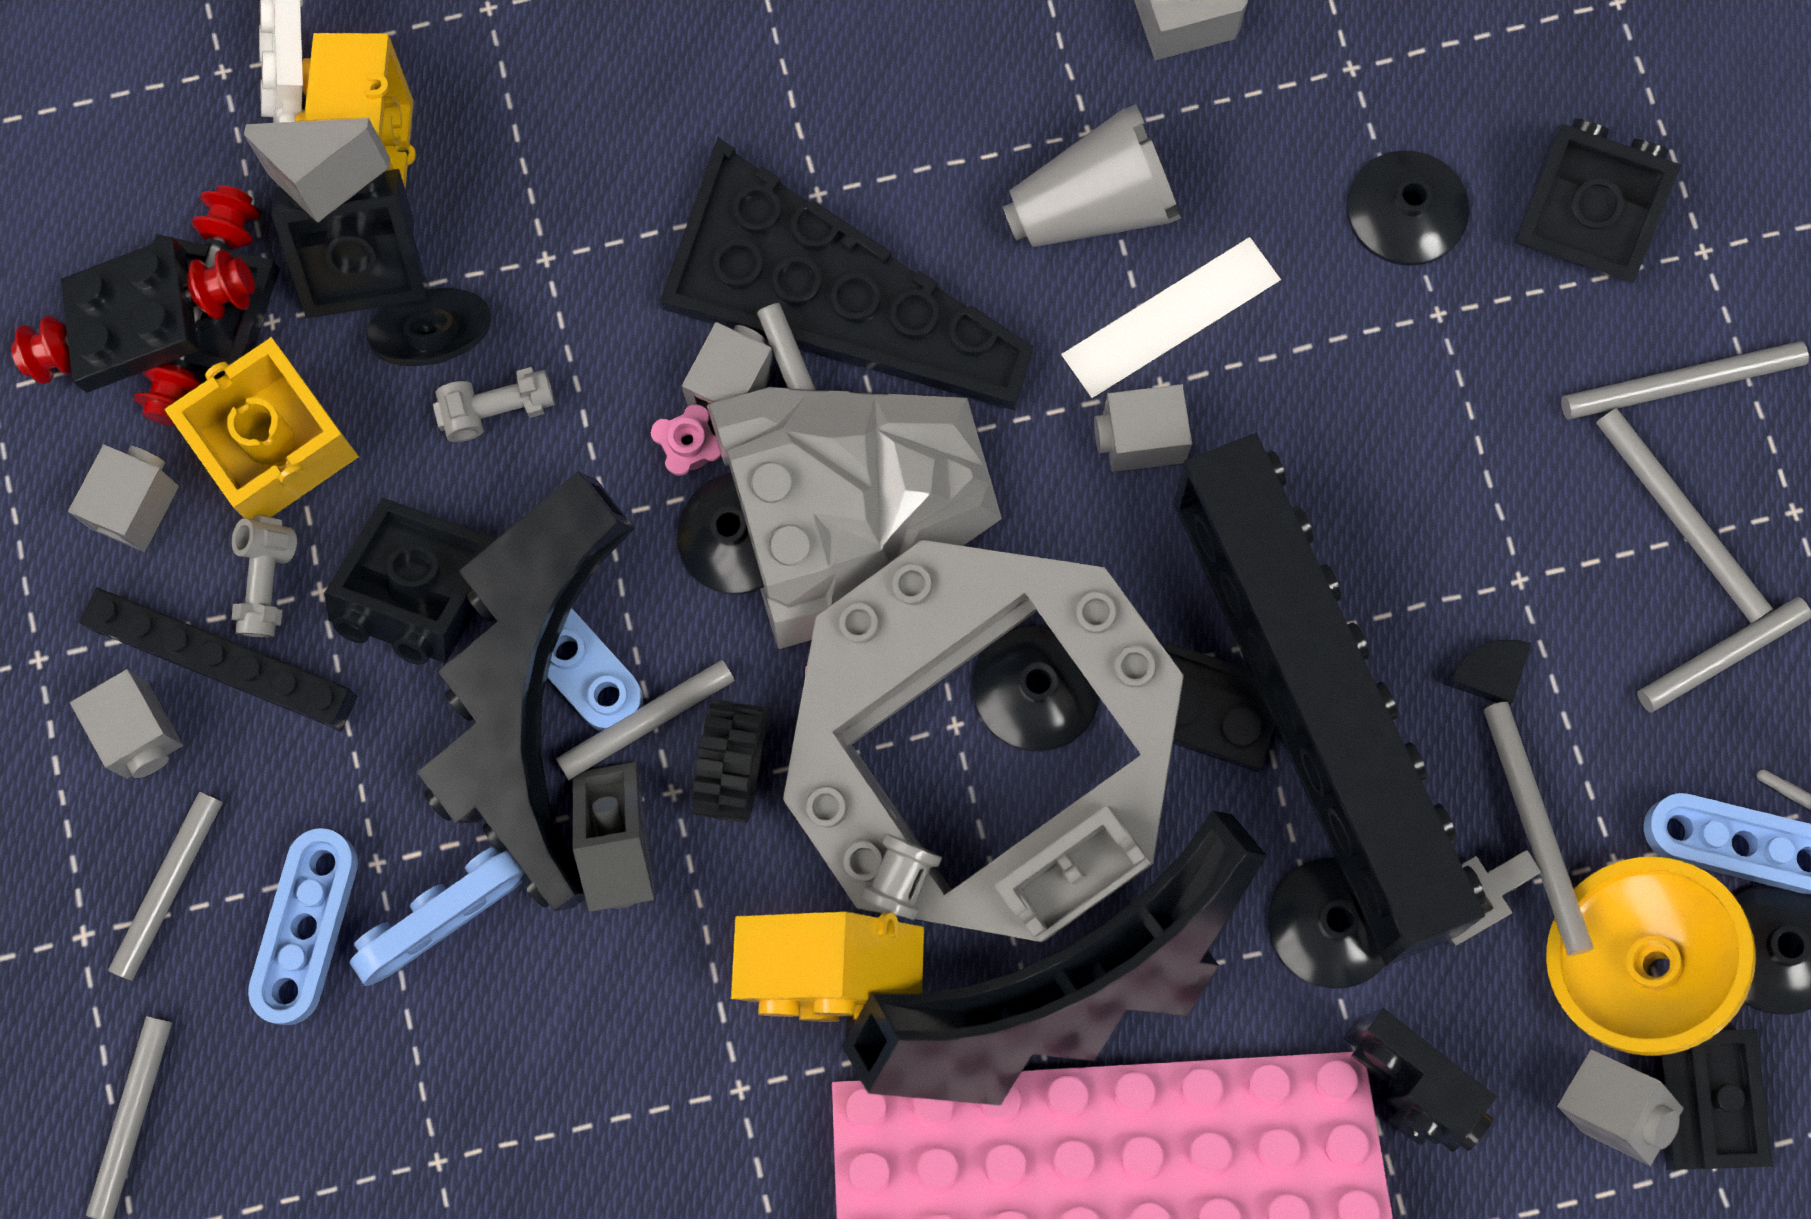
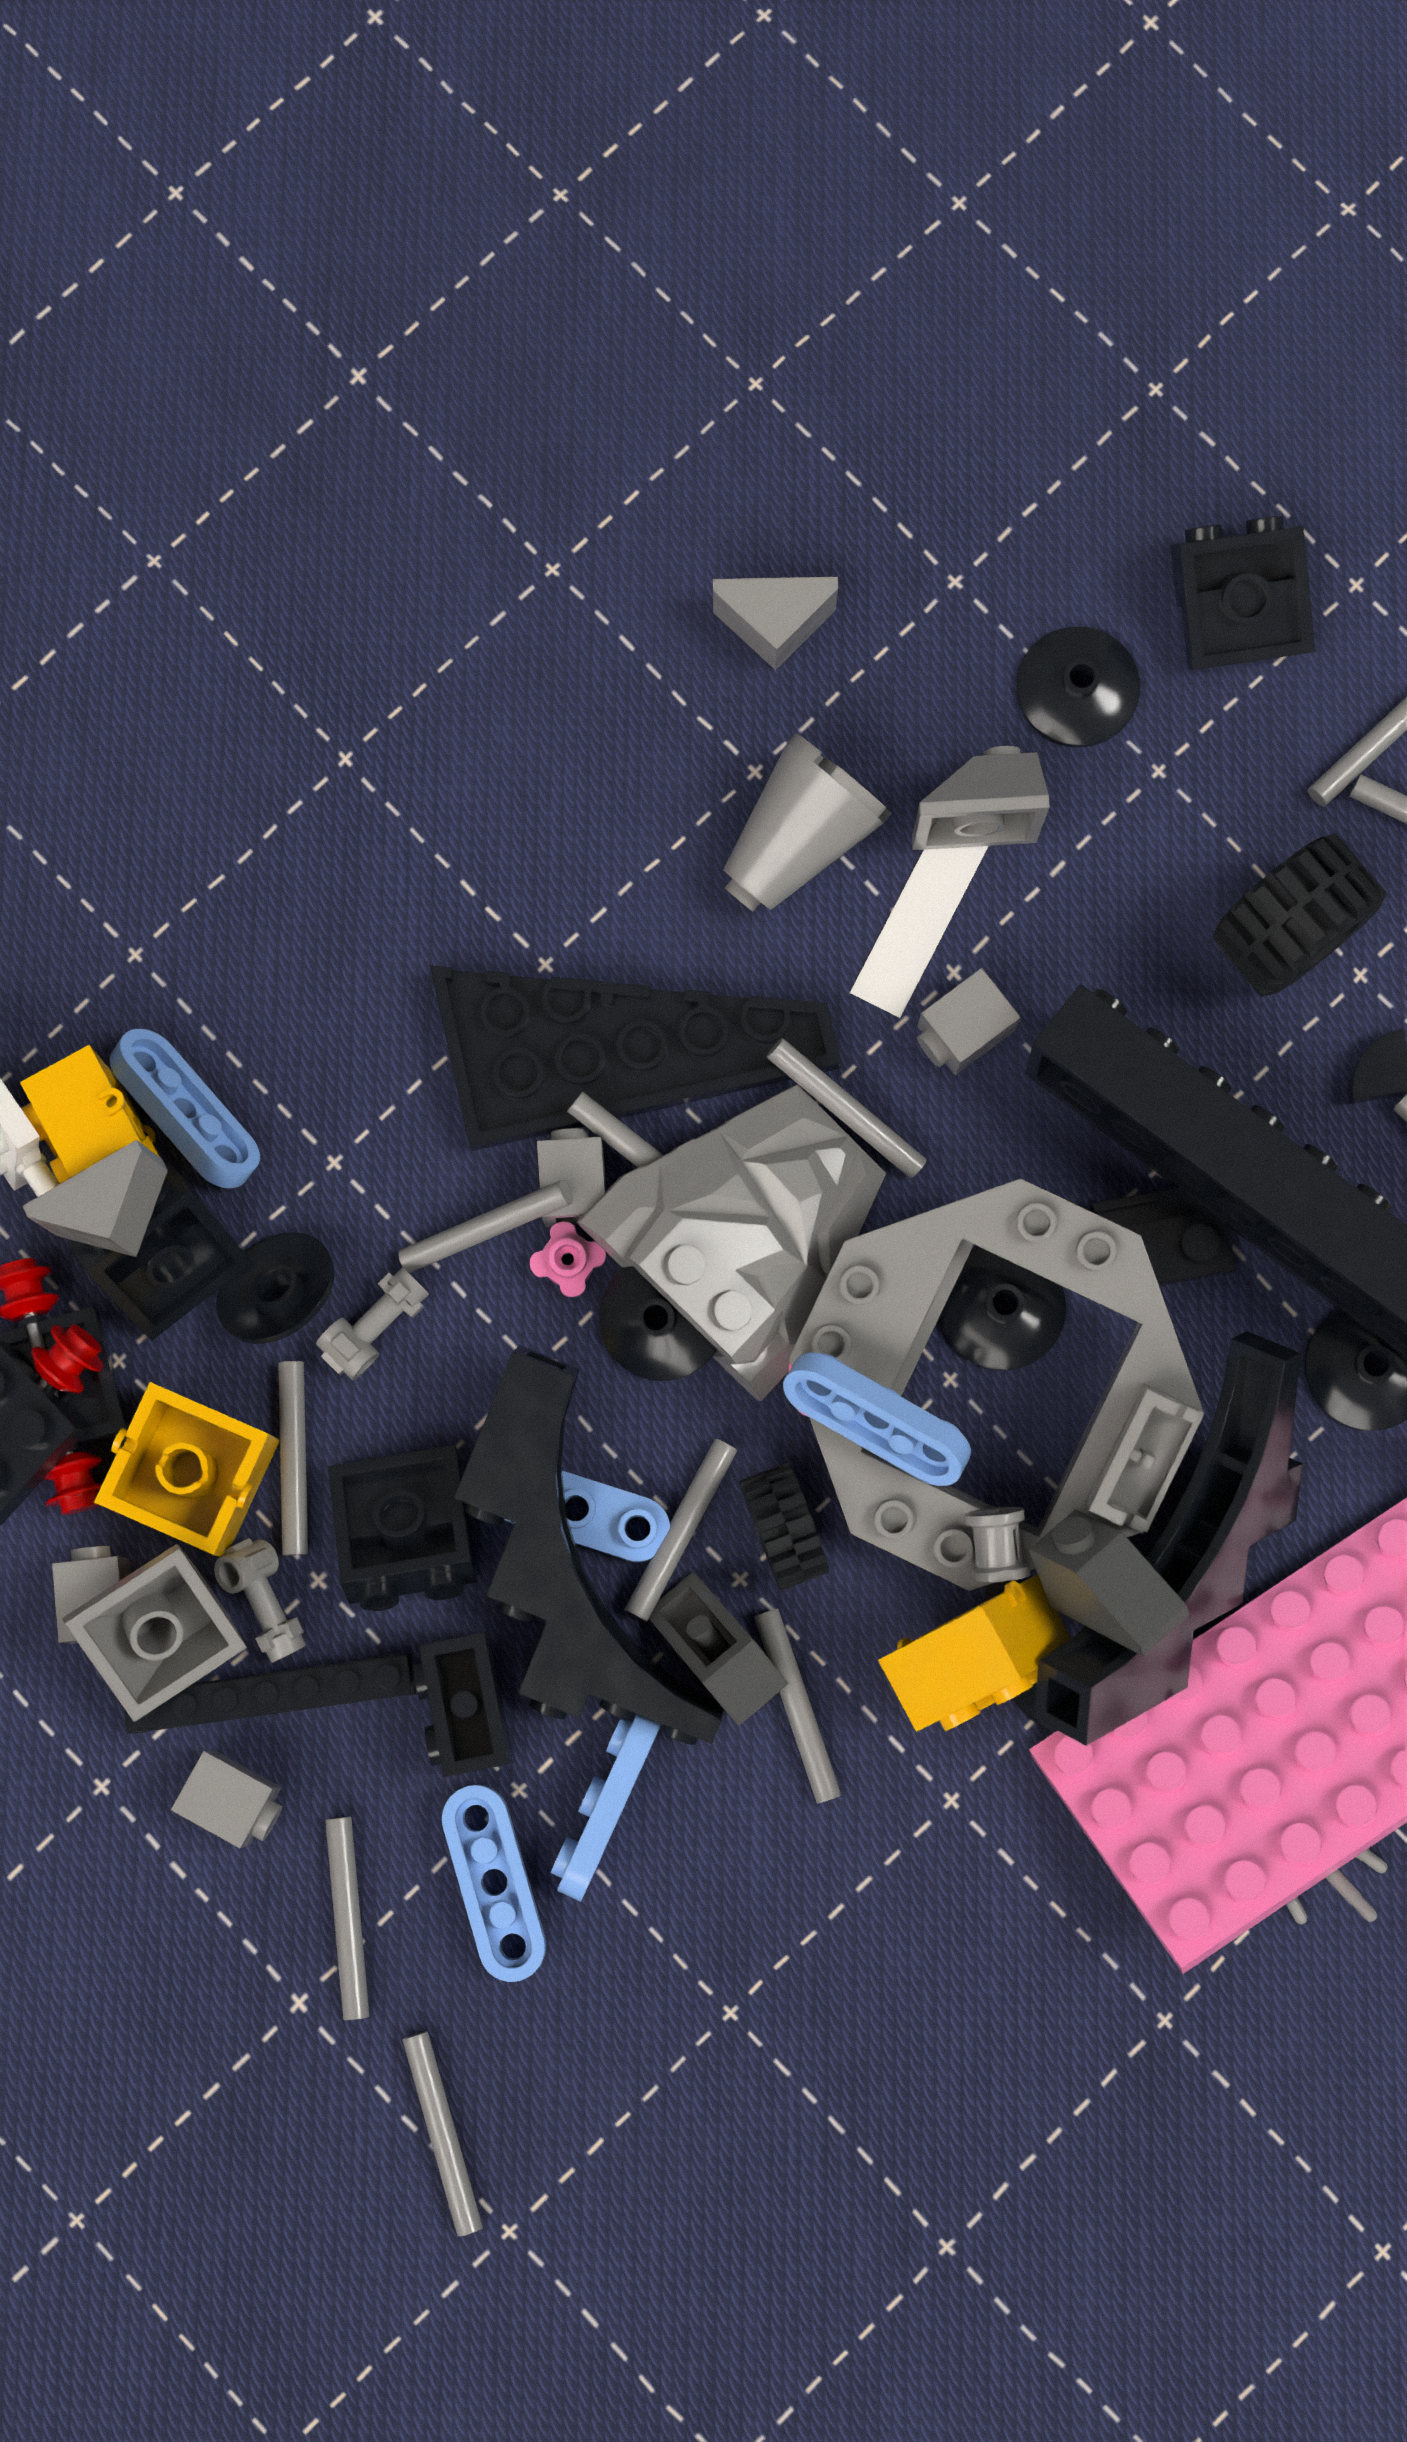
camera: 30 degrees left, 5 degrees up
(147, 542) = (155, 1632): none -> light grey slope
(360, 478) = (293, 1458): none -> light grey bar
(368, 757) = (464, 1704): none -> black brick
(447, 144) = (184, 1108): none -> light blue plate
(632, 370) = (486, 1226): none -> light grey bar
(654, 928) = (798, 1707): none -> light grey bar
(857, 704) = (877, 1419): none -> light blue plate
(973, 961) = (1106, 1583): none -> dark grey slope
(997, 442) = (846, 1108): none -> light grey bar
(1261, 251) = (985, 803): none -> light grey slope
(1489, 486) = (1298, 914): none -> black tyre

